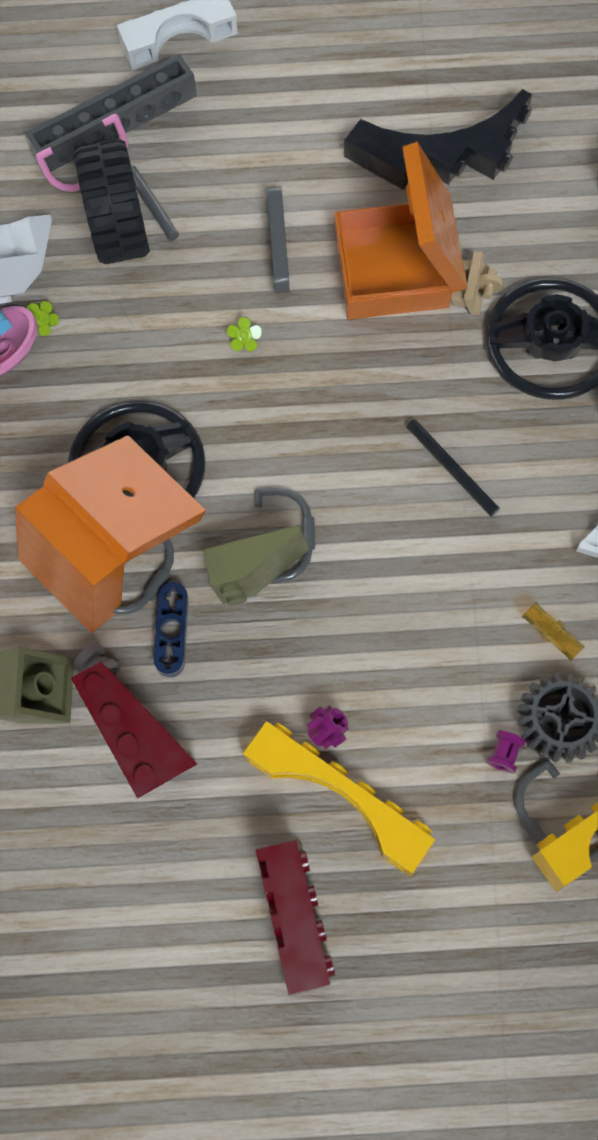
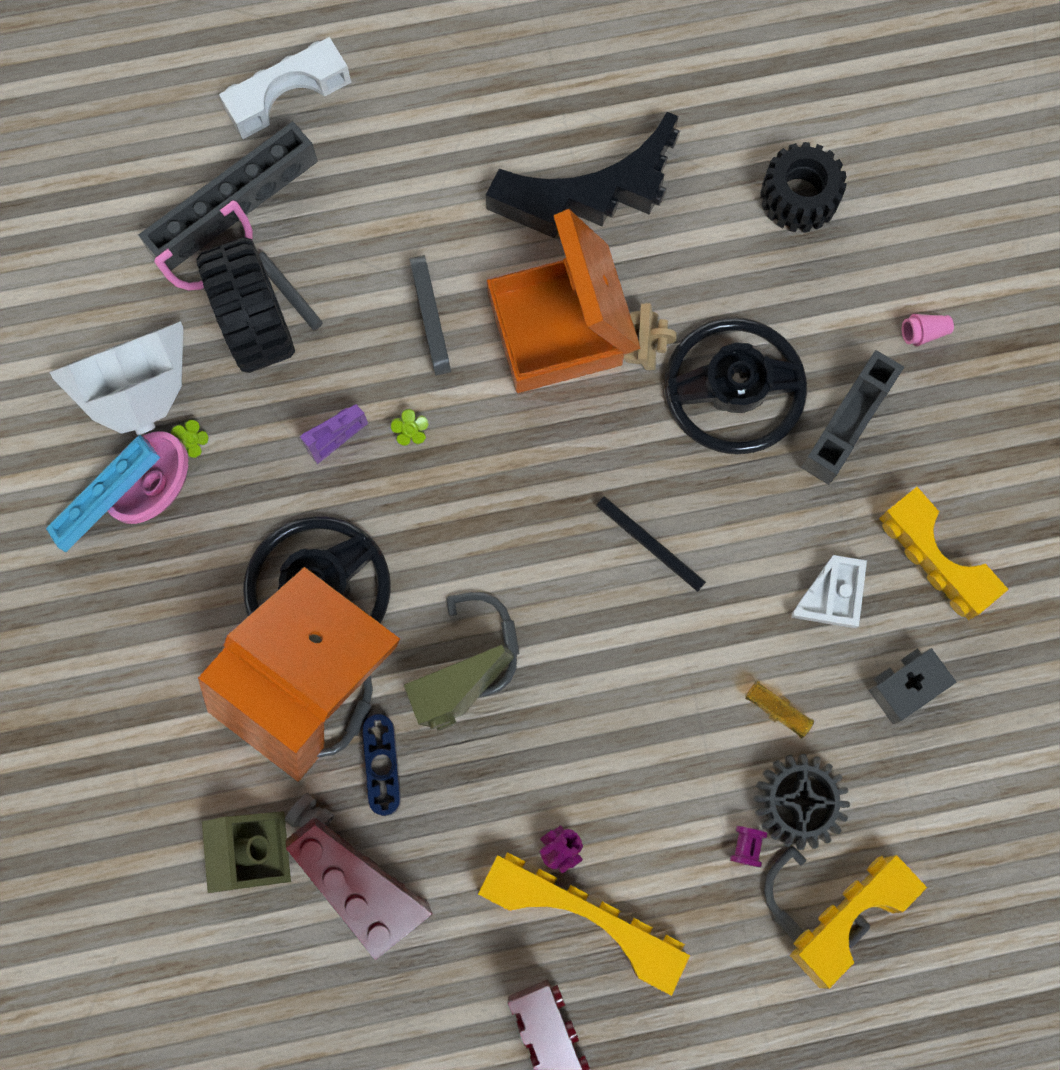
camera: 10 degrees left, 5 degrees up
(173, 328) = (333, 433): none -> medium lavender wing

